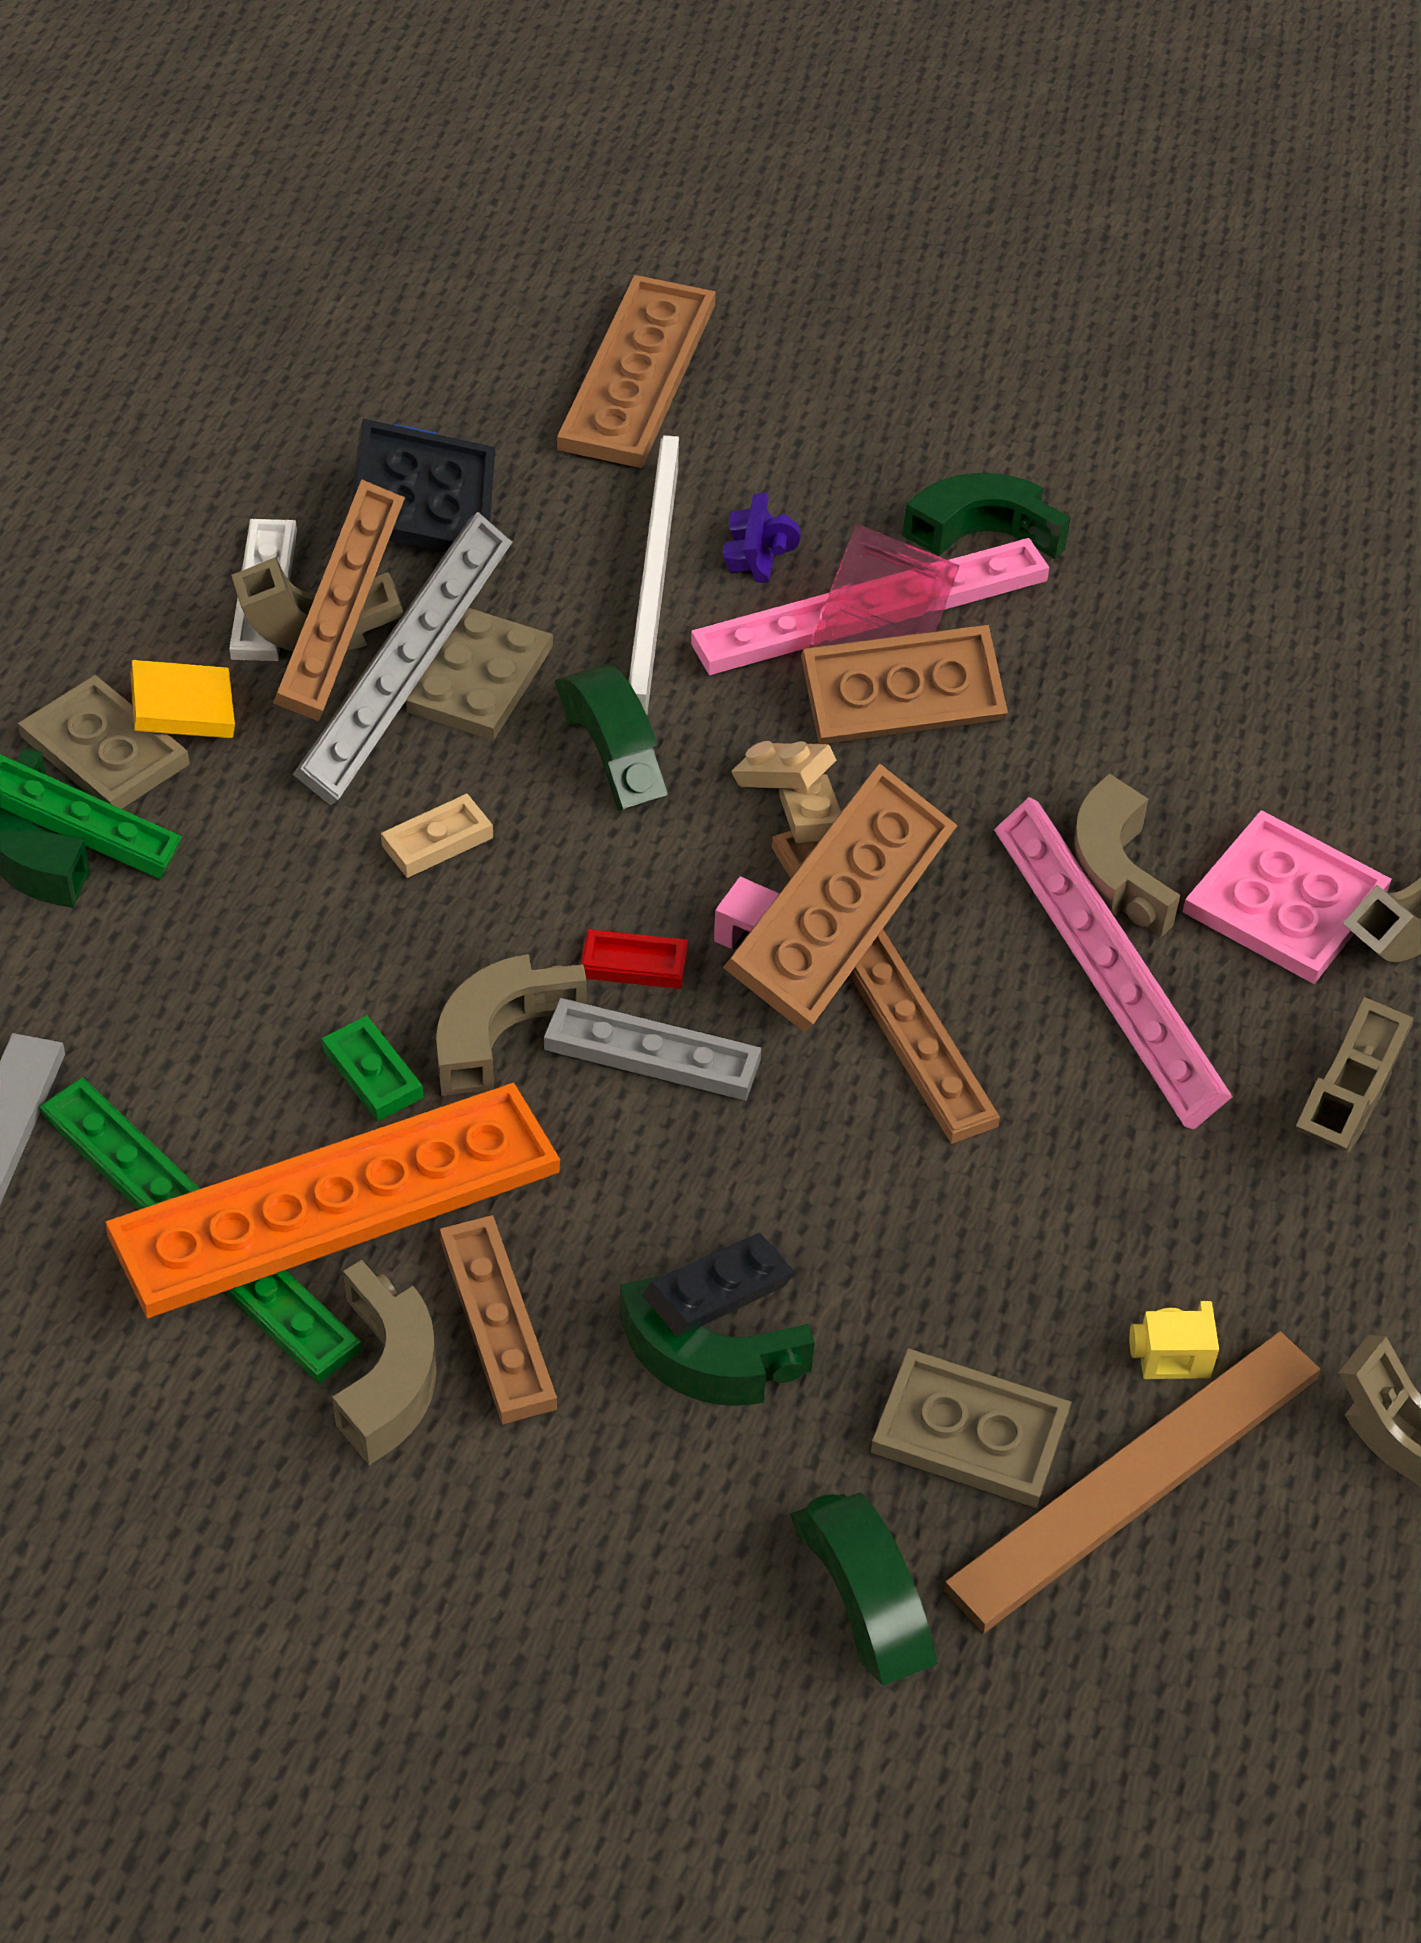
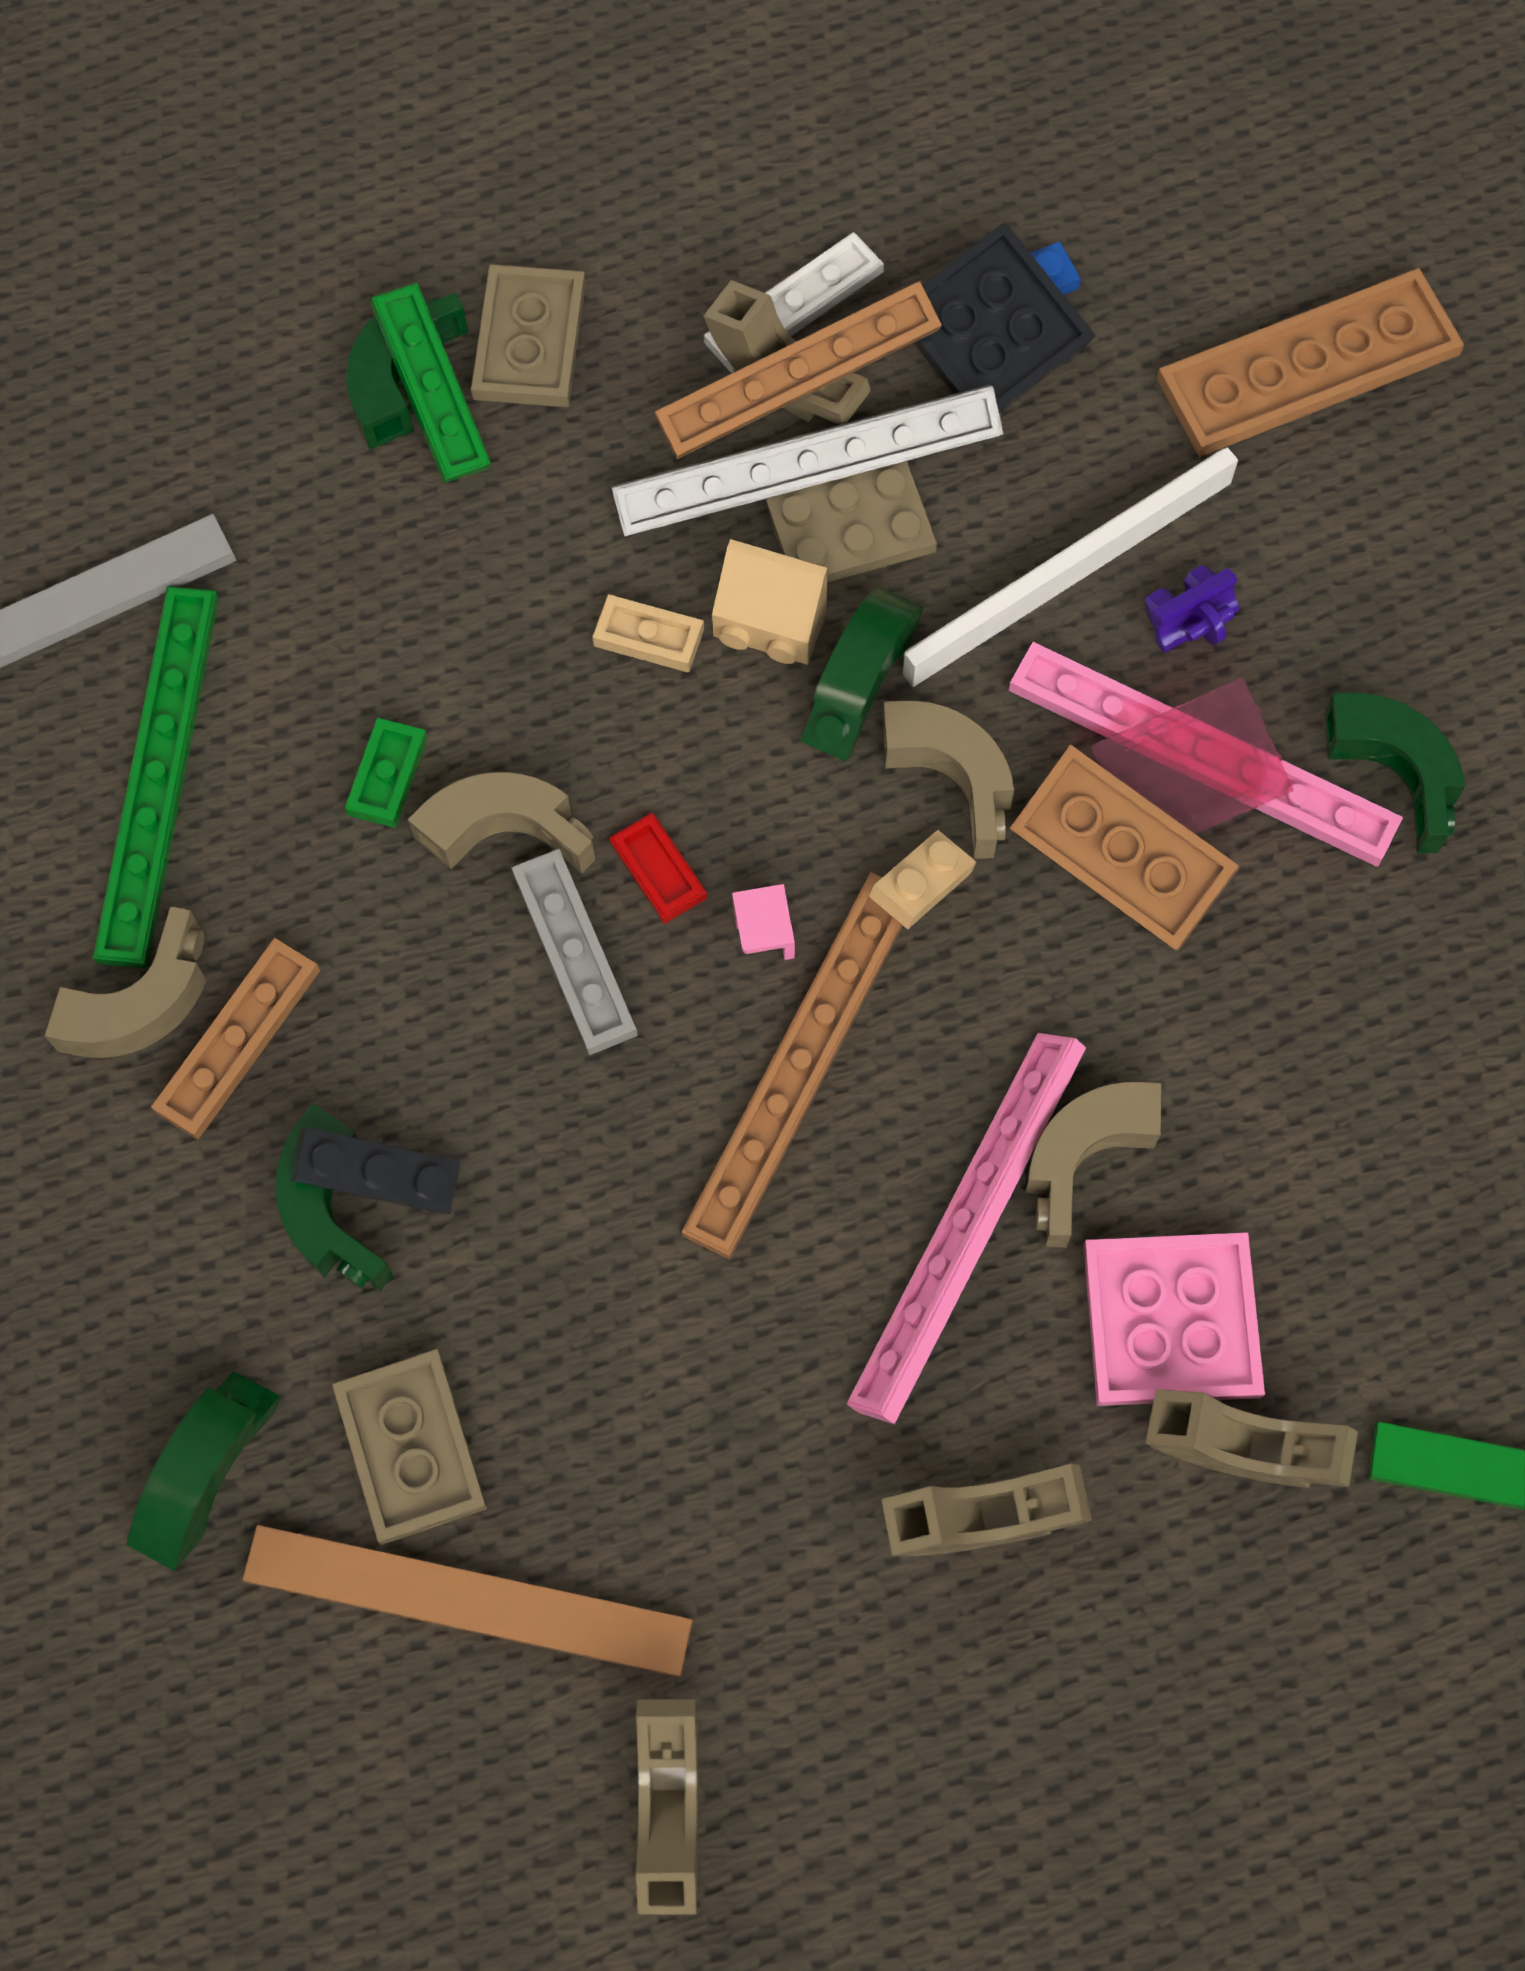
camera: 55 degrees right, 20 degrees up
(182, 699) = (615, 348): yellow tile -> none
(330, 1199) = (242, 847): orange plate -> none
(501, 739) = (770, 603): none -> tan slope
(728, 725) = (957, 746): none -> dark tan arch
(783, 765) = (943, 825): tan plate -> none
(840, 898) = (830, 975): medium nougat plate -> none
(1176, 1343) = (610, 1544): light yellow brick -> none

